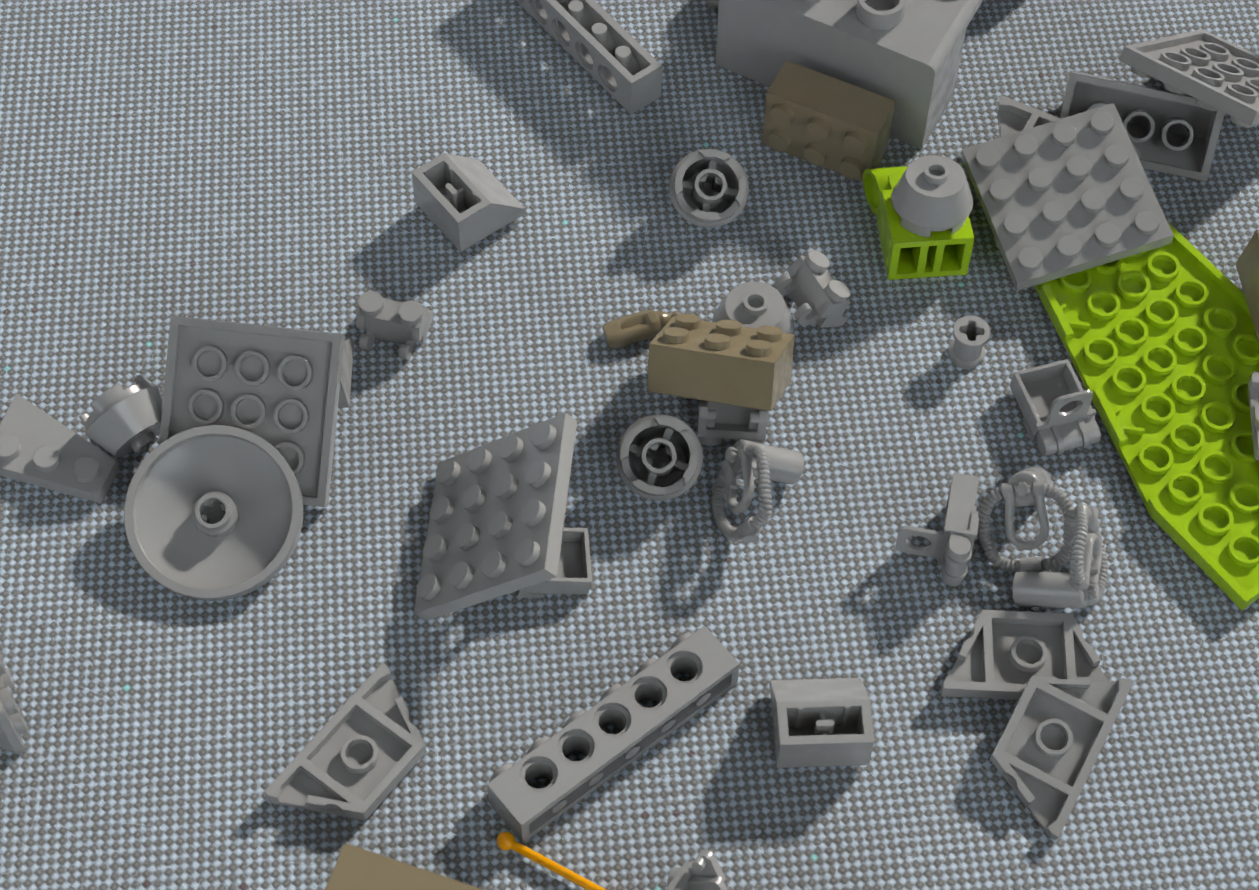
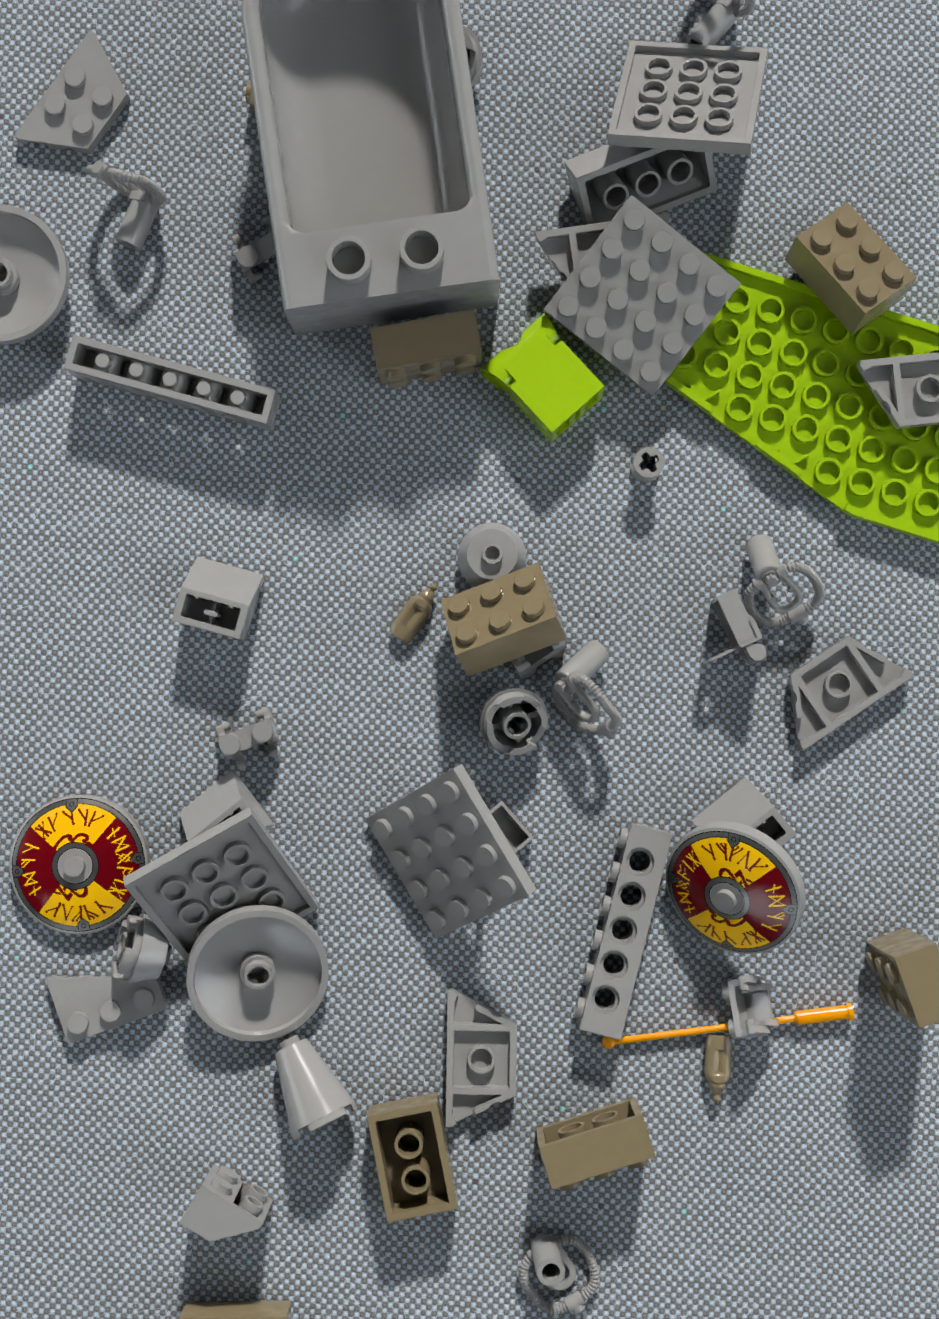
camera: 30 degrees left, 30 degrees up
(121, 316) = (73, 863): none -> dish
(161, 660) = (309, 1088): none -> light grey cone
(204, 791) = (412, 1157): none -> dark tan brick
(709, 188) = (385, 471): light grey cone -> none
(766, 750) = (735, 887): none -> dish
(815, 291) = (517, 501): light grey piece -> none
(932, 196) = (556, 378): light grey cone -> none
(1055, 408) = (738, 477): light grey piece -> none
(1056, 742) = (895, 735): light grey wing -> none
(1087, 573) = (836, 623): light grey piece -> none

